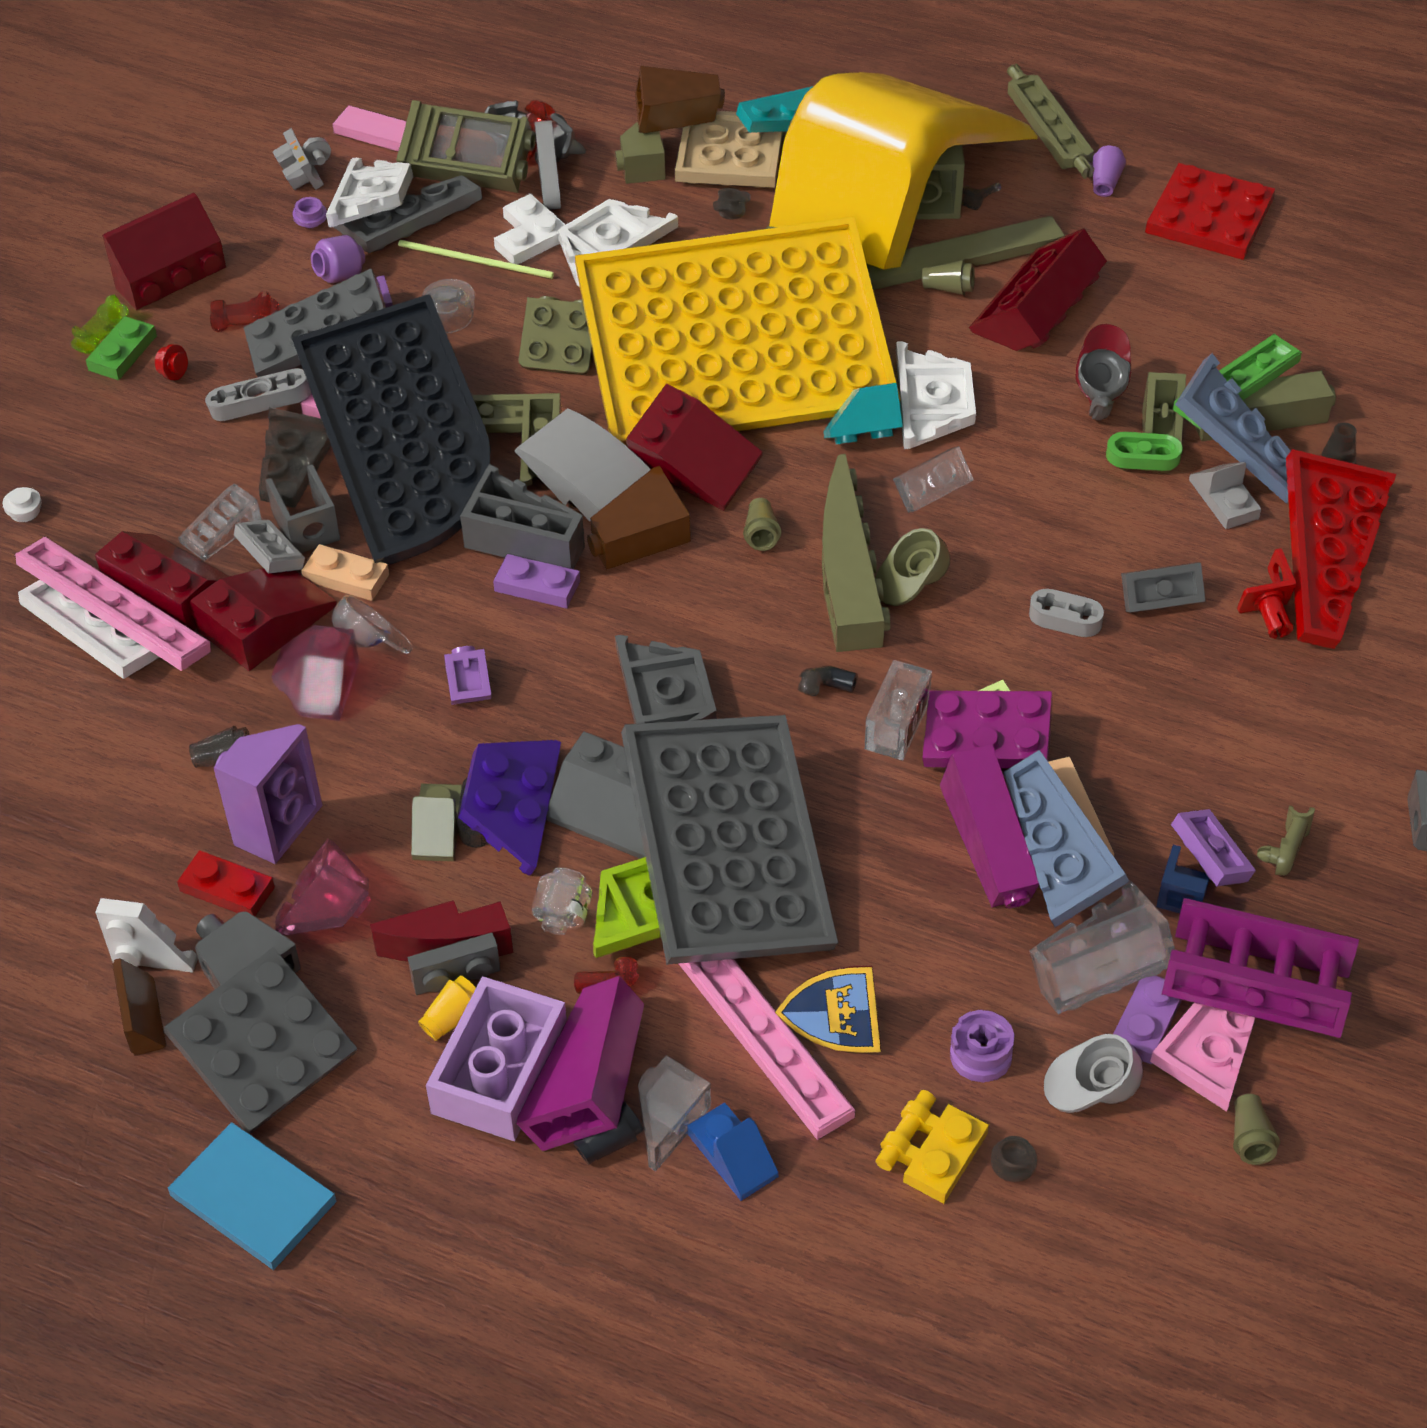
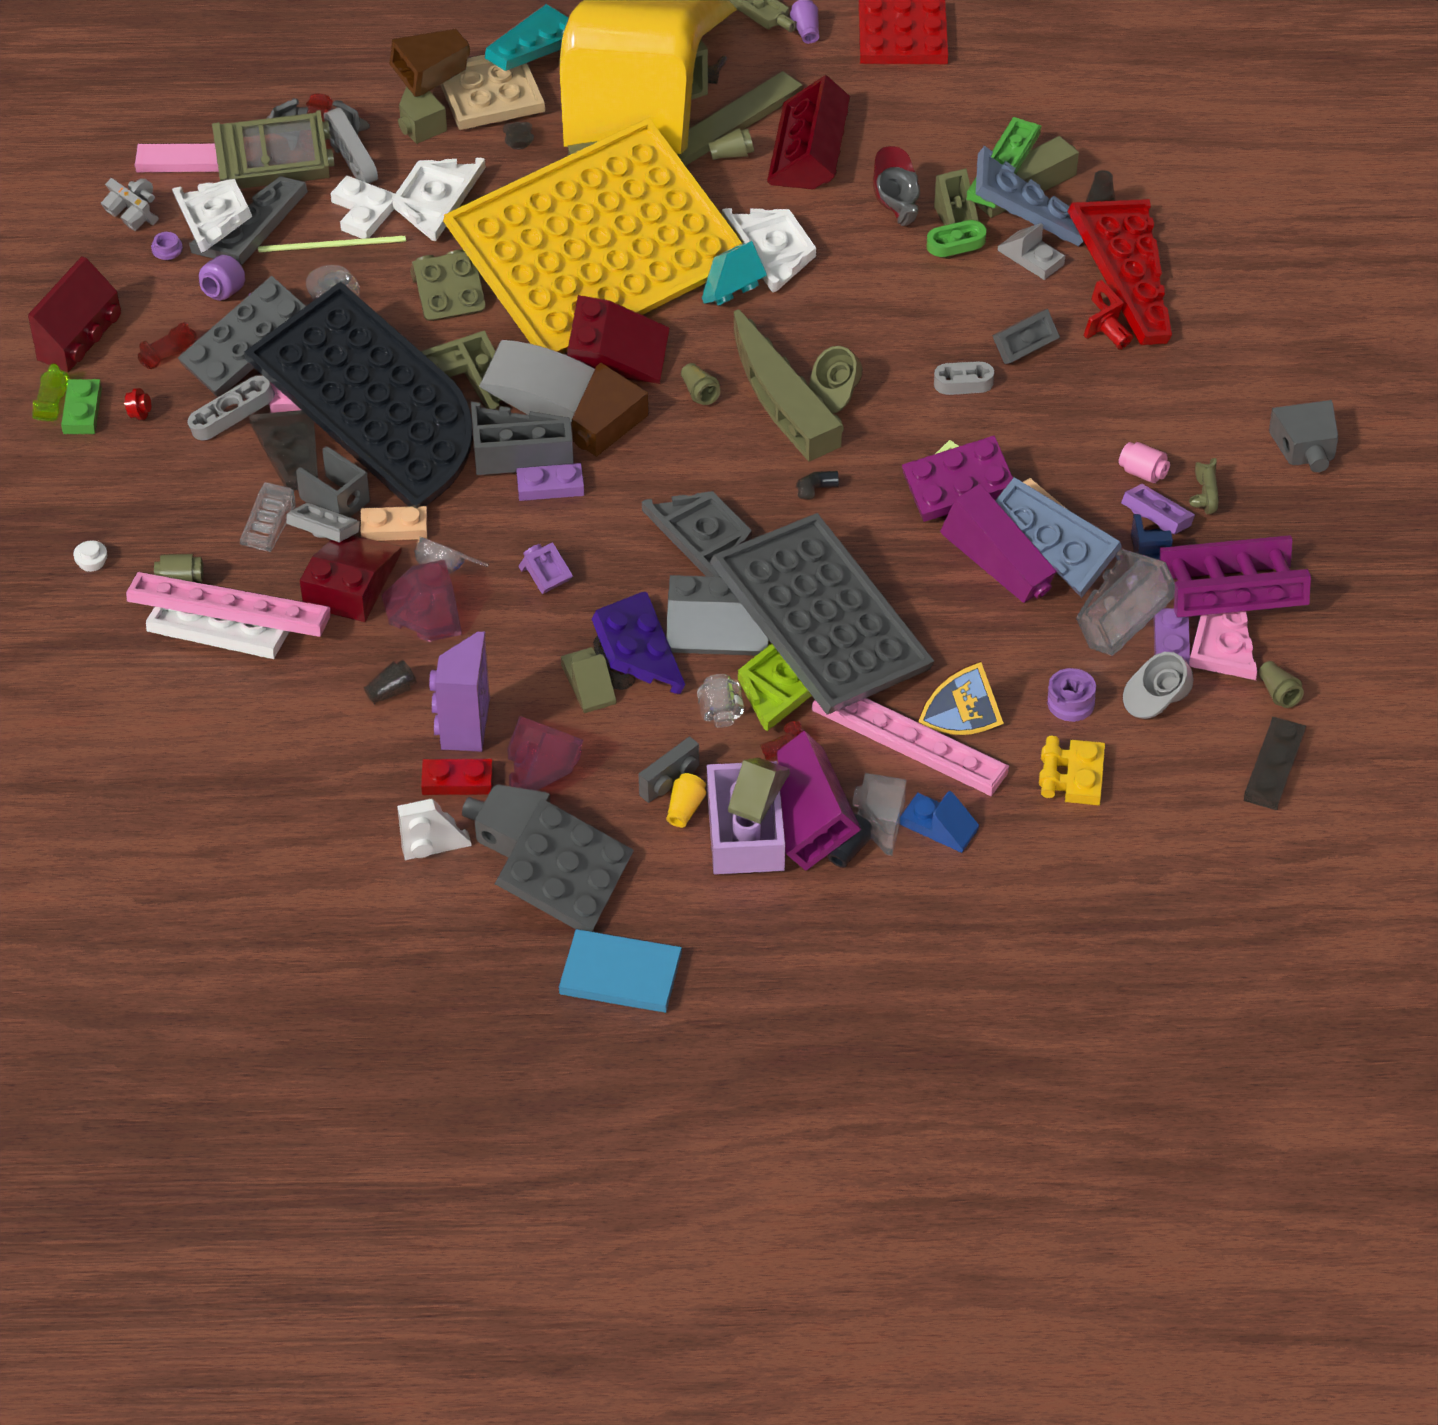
camera: 25 degrees left, 0 degrees up
(85, 543) = (180, 567): none -> olive brick
(138, 1008) = (451, 883): reddish brown slope -> none
(157, 572) = (252, 571): dark red slope -> none
(439, 927) = (642, 749): dark red slope -> none
(516, 1026) = (757, 788): none -> olive slope
(897, 710) = (887, 485): clear brick -> none
(933, 479) = (811, 308): clear plate -> none
(1014, 1159) = (1132, 758): clear smoke plate -> none
(1194, 1234) = (1274, 763): none -> clear smoke plate
(1226, 783) = (1144, 462): none -> bright pink brick

